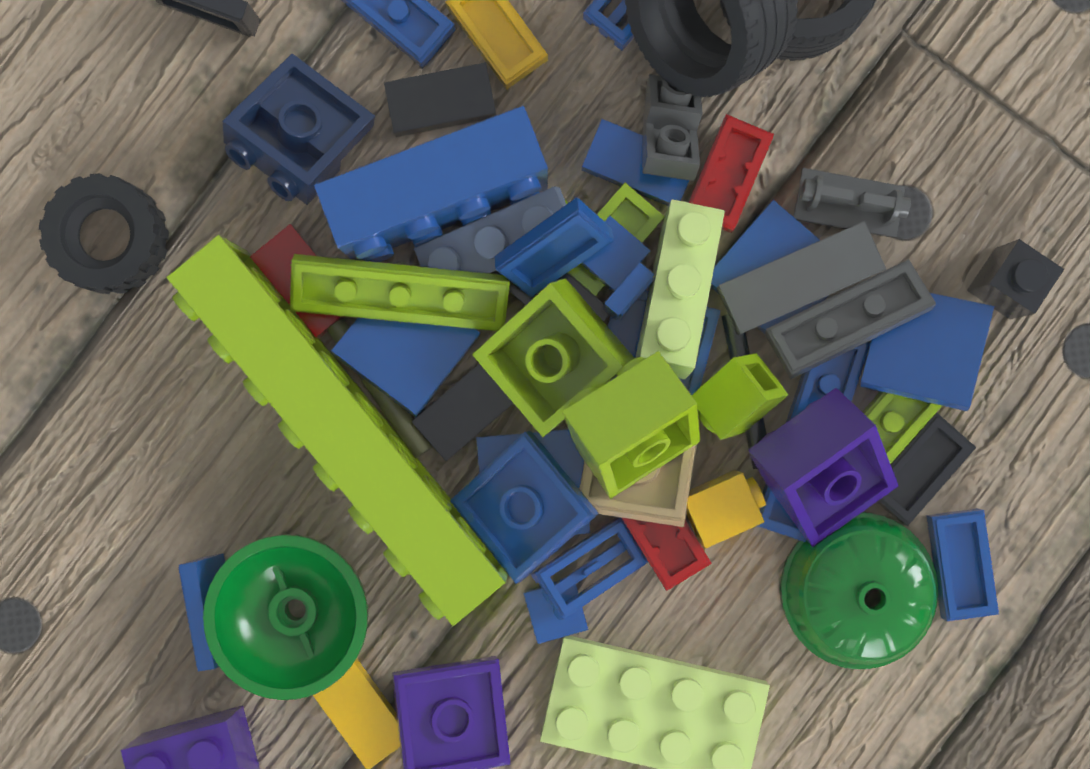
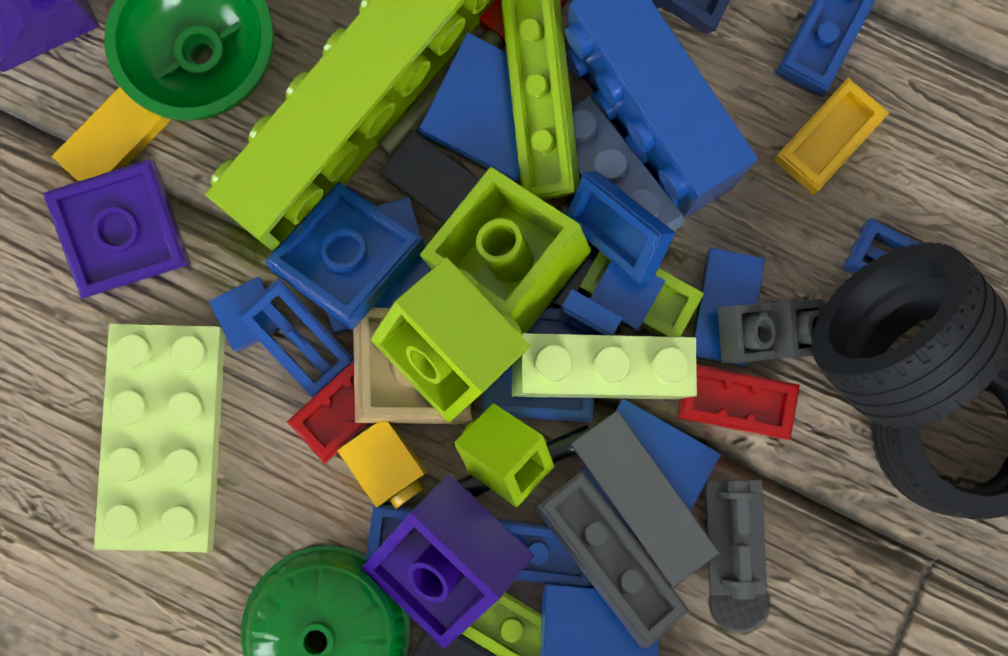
camera: 80 degrees right, 5 degrees down
(440, 99) = (747, 91): black tile -> none

